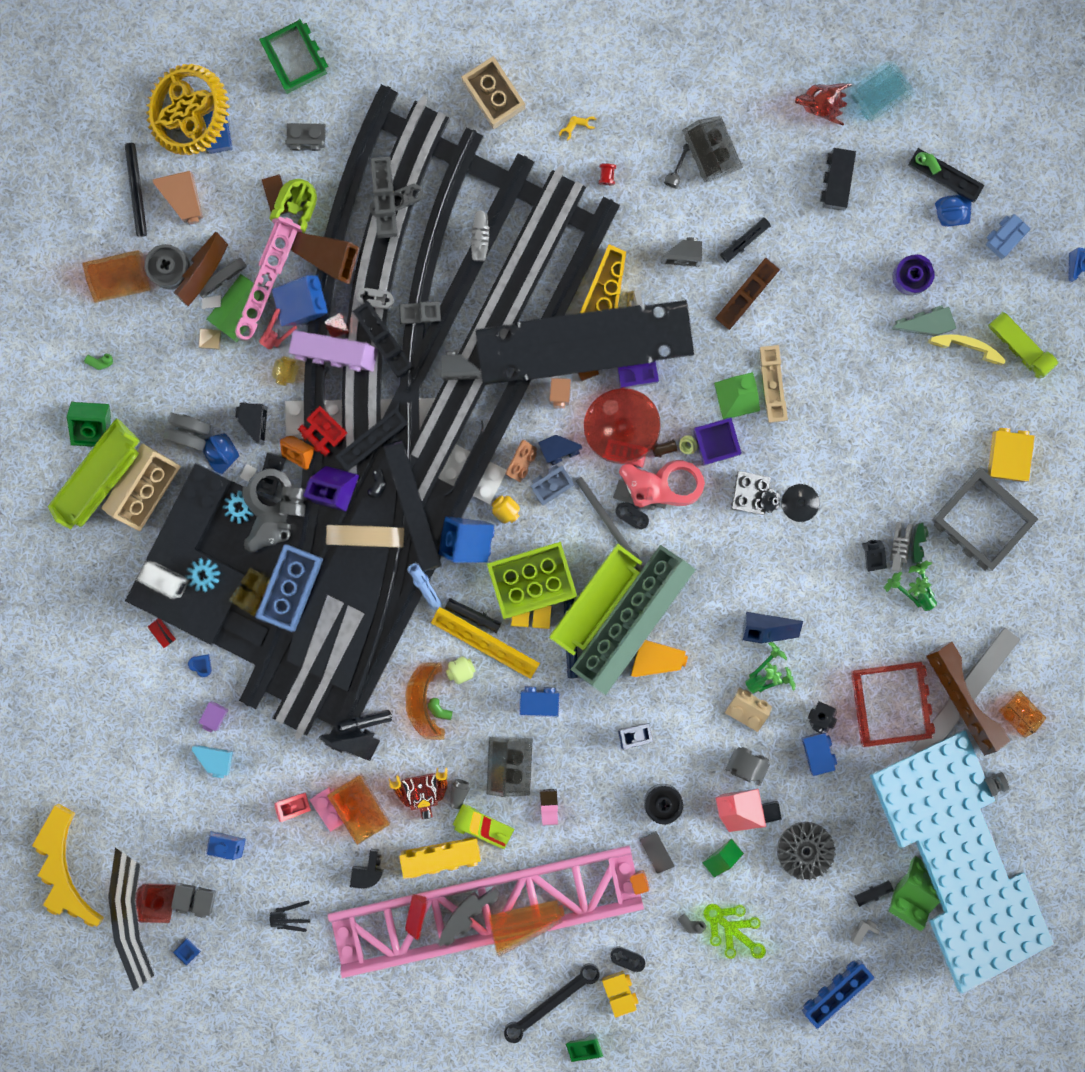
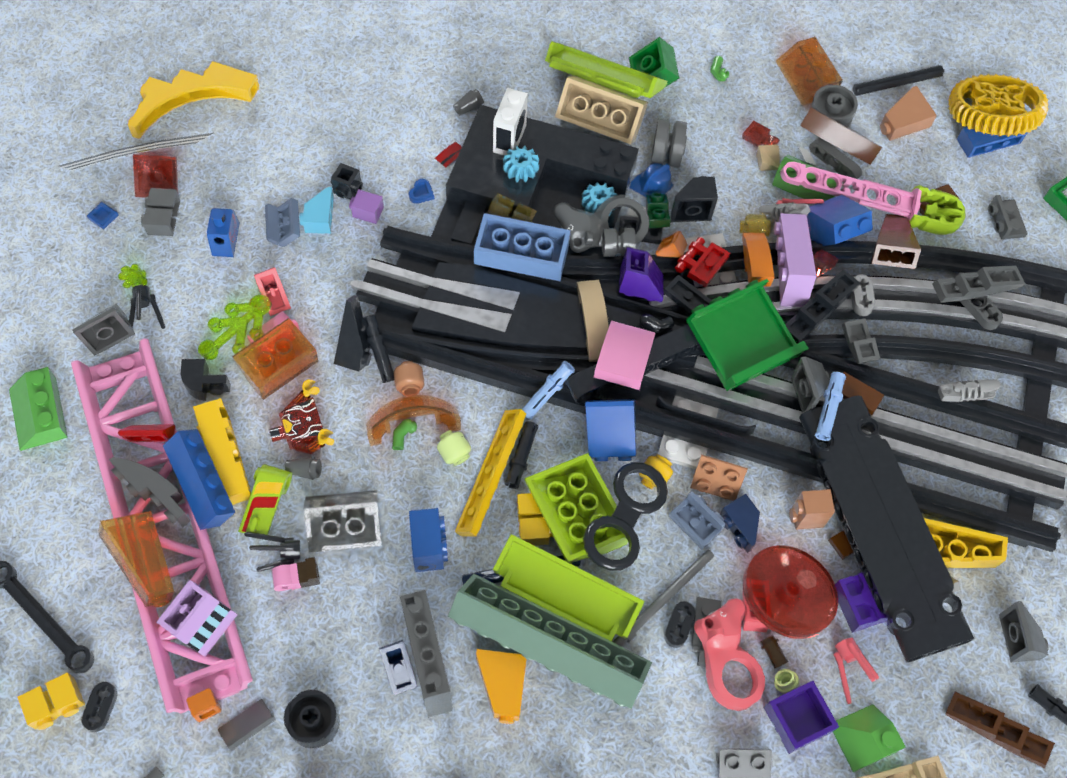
camera: 75 degrees right, 25 degrees down
(107, 608) = (469, 102): none -> dark grey cone
(180, 735) = (346, 181): none -> black brick
(182, 342) = (759, 134): none -> clear red plate
(220, 793) = (282, 223): none -> sand blue bracket
(254, 454) = (658, 210): none -> dark green slope
(257, 925) = (132, 276): none -> clear neon green plant
(278, 344) = (786, 208): none -> light grey hinge
(308, 949) = (104, 330): none -> dark grey slope
(321, 838) = (256, 308): none -> clear neon green plant
(326, 382) = (757, 258): none -> orange slope
(375, 1007) = (37, 409): none -> bright green slope
(392, 699) = (409, 378): none -> nougat head
(405, 413) = (743, 335): none -> green panel
(411, 519) = (624, 355): none -> bright pink slope
(465, 877) = (199, 479): none -> blue brick
(466, 328) = (854, 387): none -> reddish brown tile
(483, 360) = (832, 396): none -> light blue pin
(527, 811) = (288, 549): none -> black plant
(546, 544) = (625, 516): none -> black bar
(579, 883) = (197, 618): none -> lavender slope
(635, 715) = (426, 653): none -> dark grey window
(673, 391) = (850, 652): none -> coral plant

